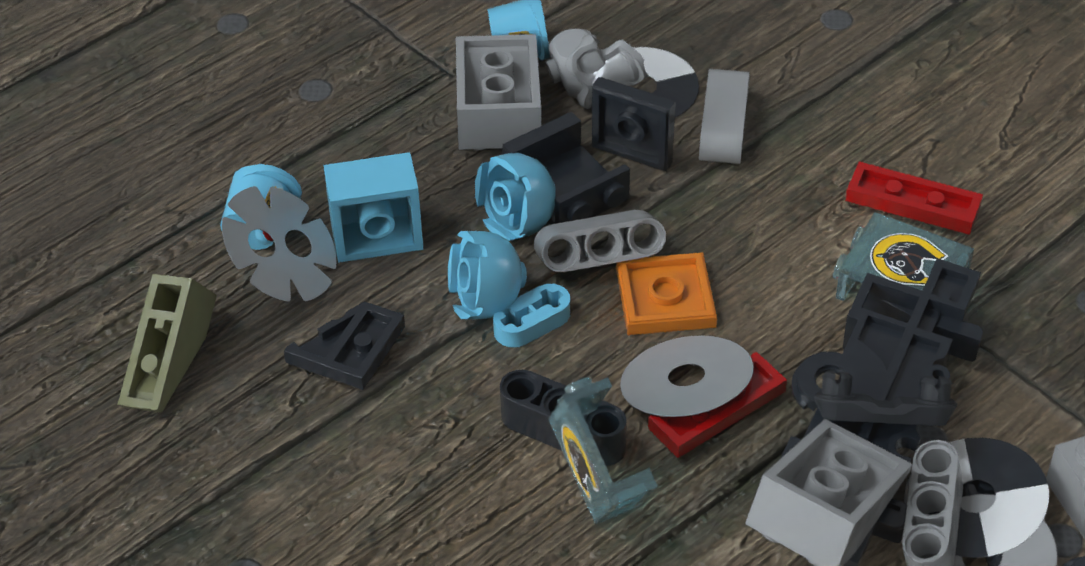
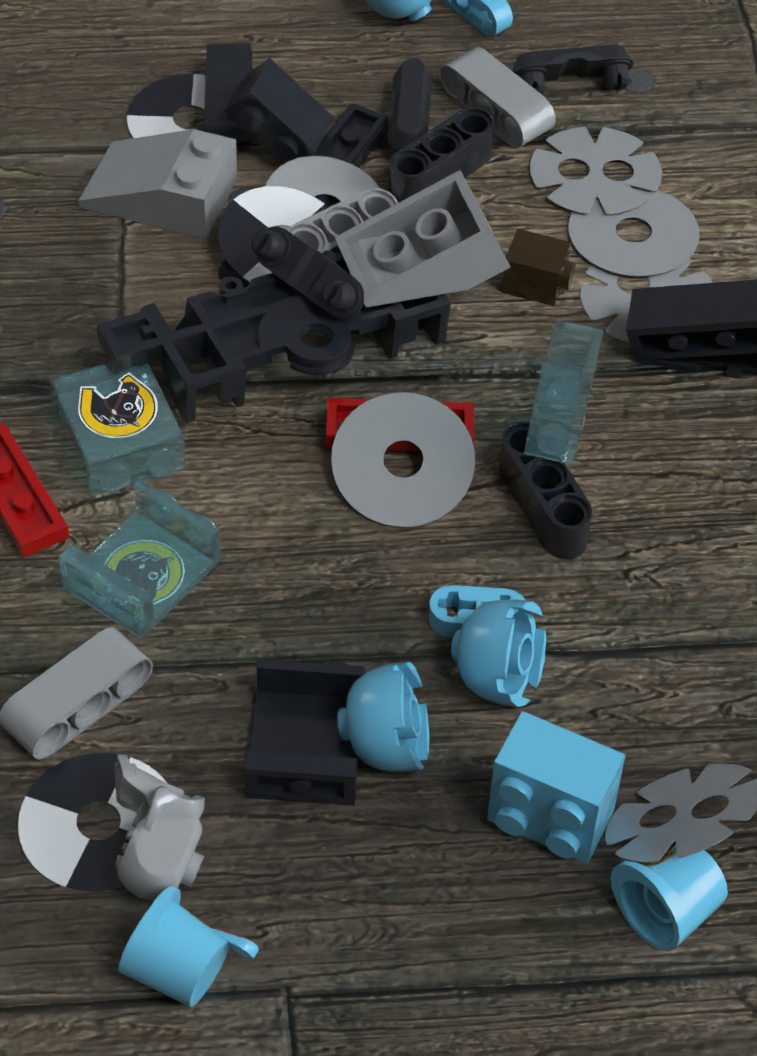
camera: 145 degrees left, 5 degrees up
(350, 346) = (679, 685): black wing -> none
(496, 89) = (287, 864): light grey slope -> none
(618, 248) = (353, 622): light grey beam -> none
(633, 123) = (200, 709): black tile -> none
(666, 294) = (332, 559): orange tile -> none
(779, 203) = (144, 563): none -> clear light blue panel

